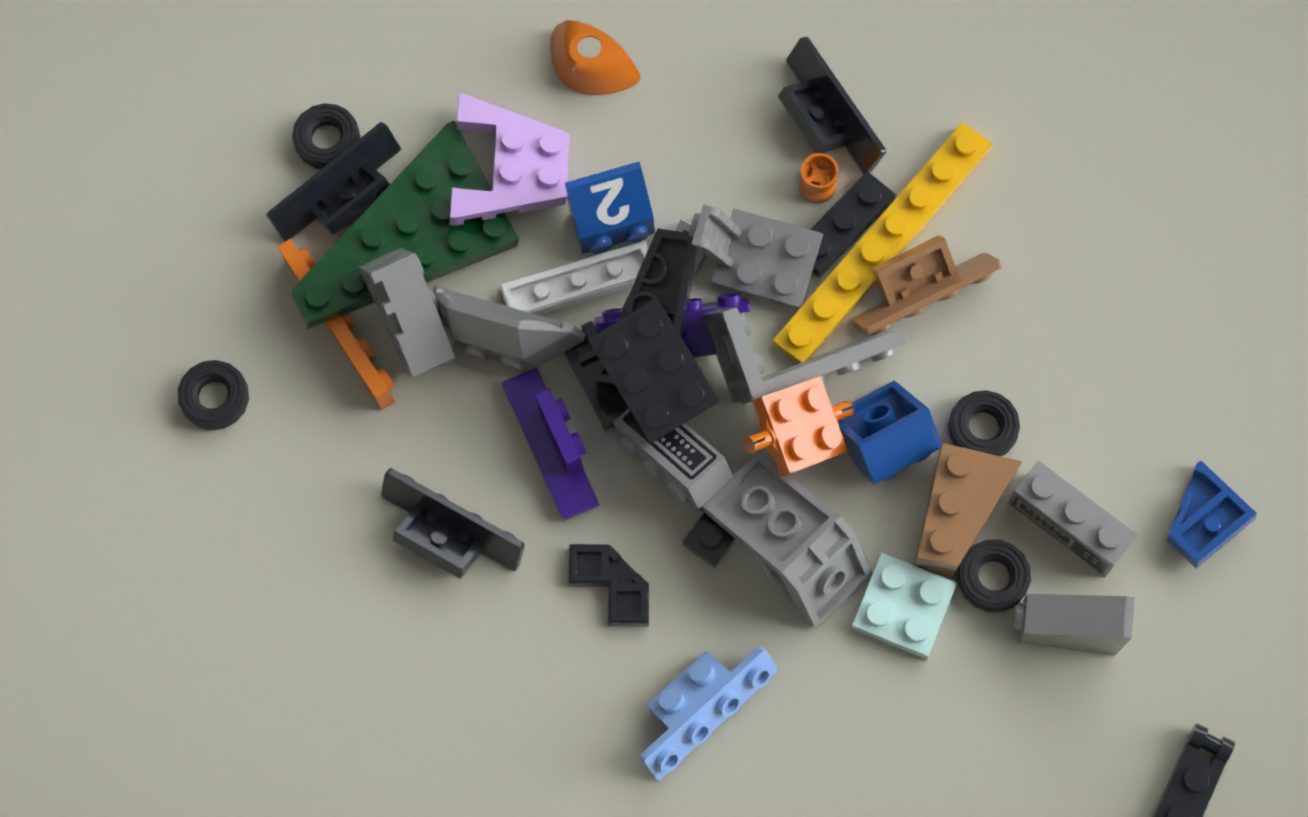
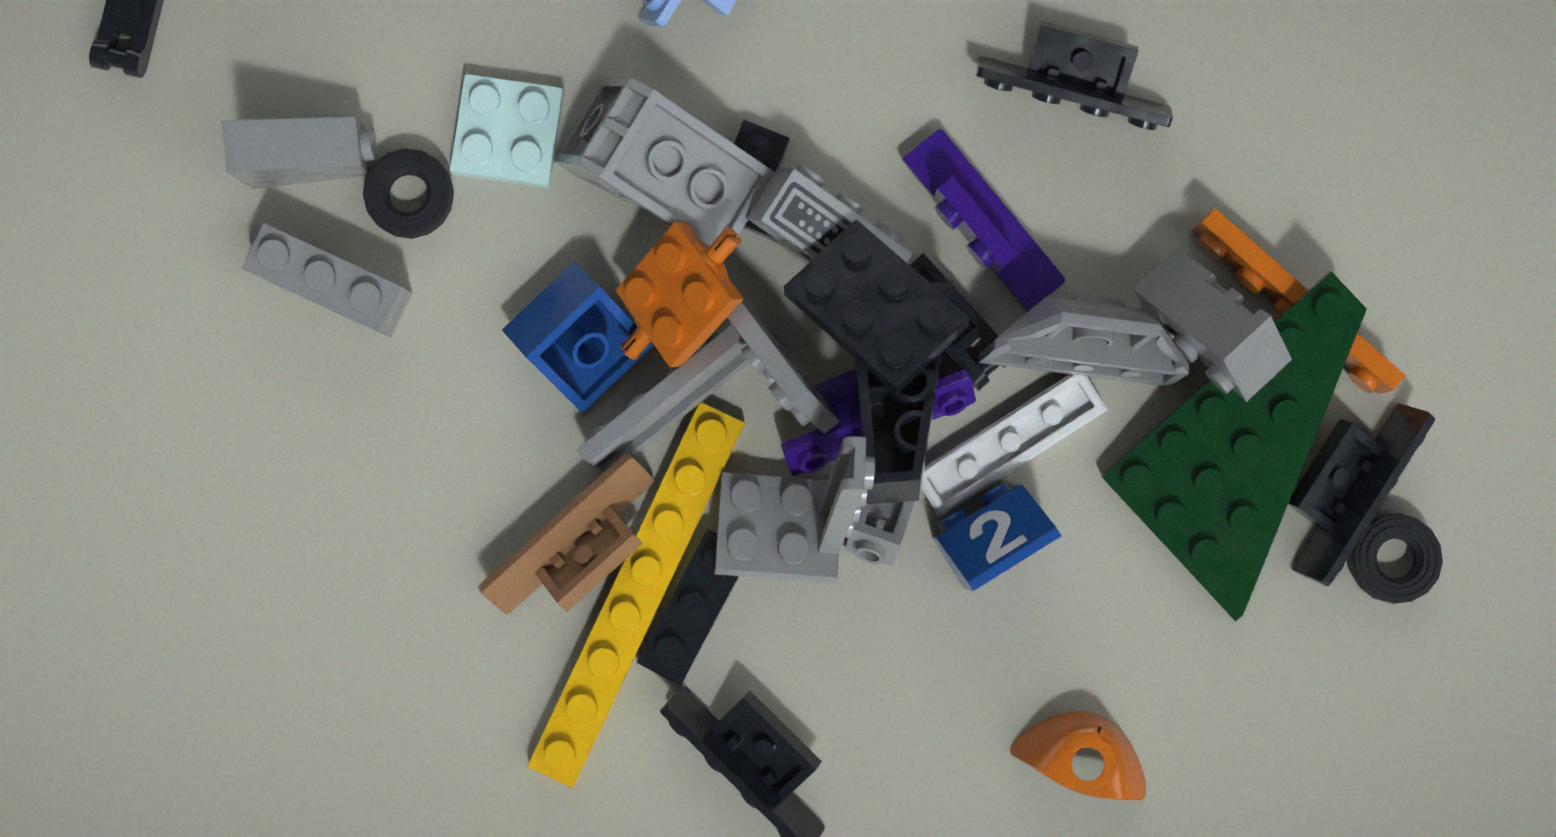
camera: 160 degrees right, 15 degrees up
(203, 374) = (1448, 169): black tyre -> none
(527, 163) = (1121, 579): lavender wing -> none
(603, 567) = (874, 86): black tile -> none
(820, 170) = (740, 664): orange wheel -> none
(960, 502) = (464, 261): medium nougat wedge -> none
(990, 403) = (428, 377): black tyre -> none
(1207, 516) = (166, 330): blue wing -> none

